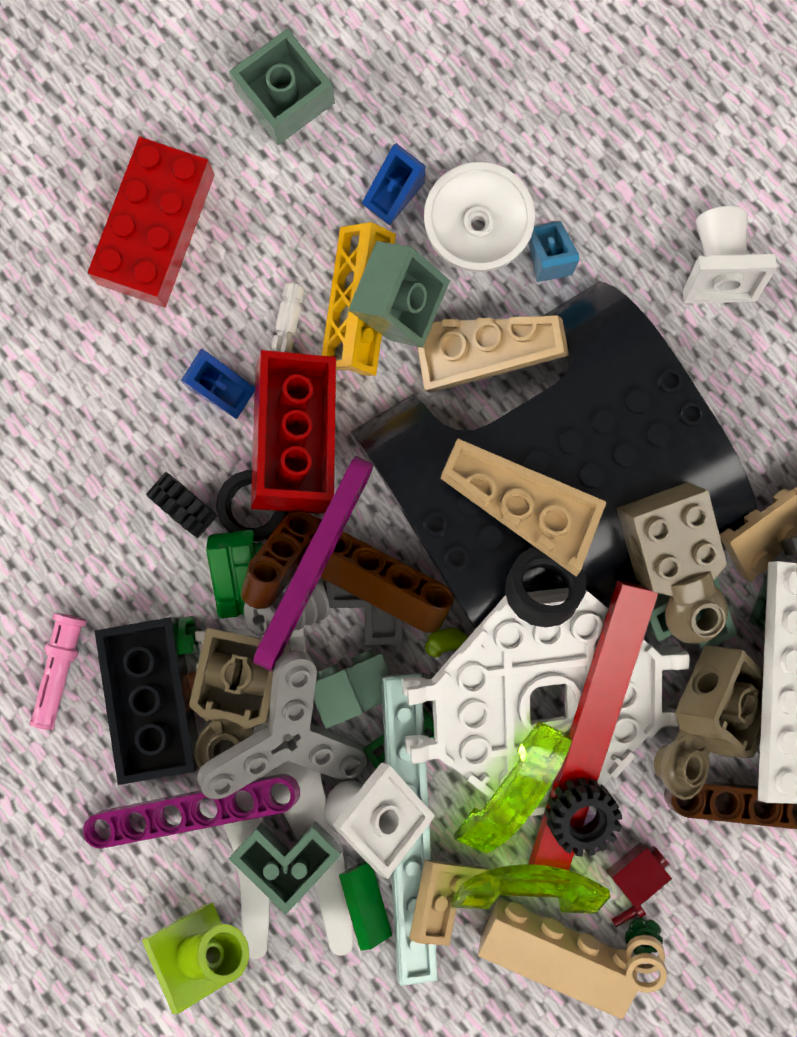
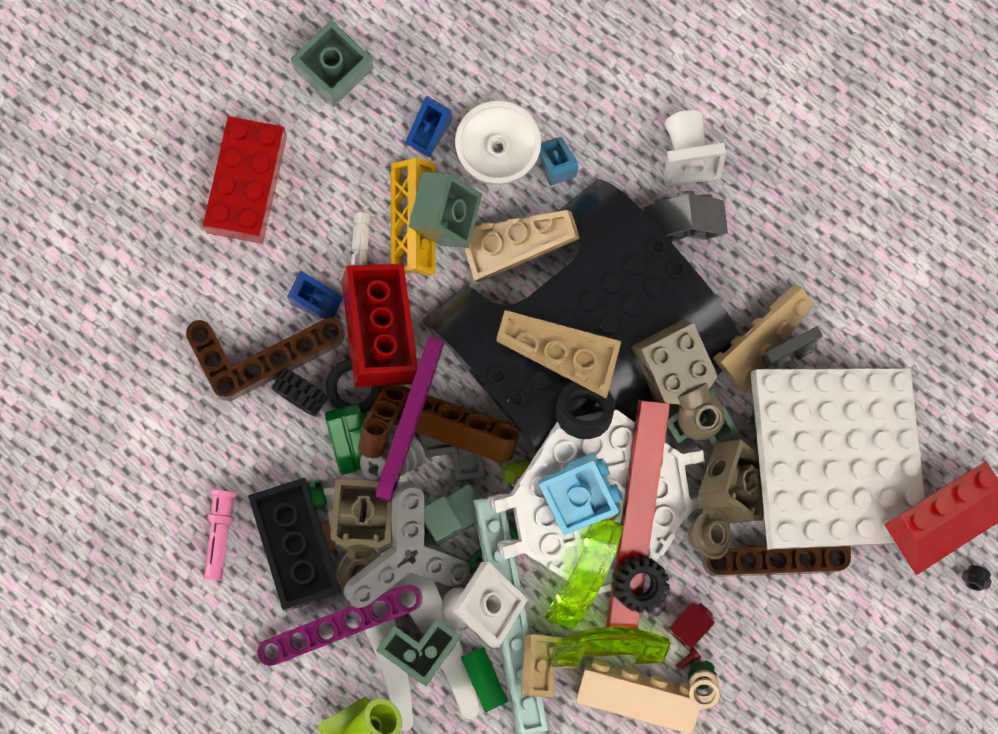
camera: 15 degrees left, 5 degrees down
(143, 455) = (263, 359): none -> reddish brown beam
(524, 695) = (581, 493): none -> medium azure plate
(713, 344) = (689, 216): none -> dark grey brick

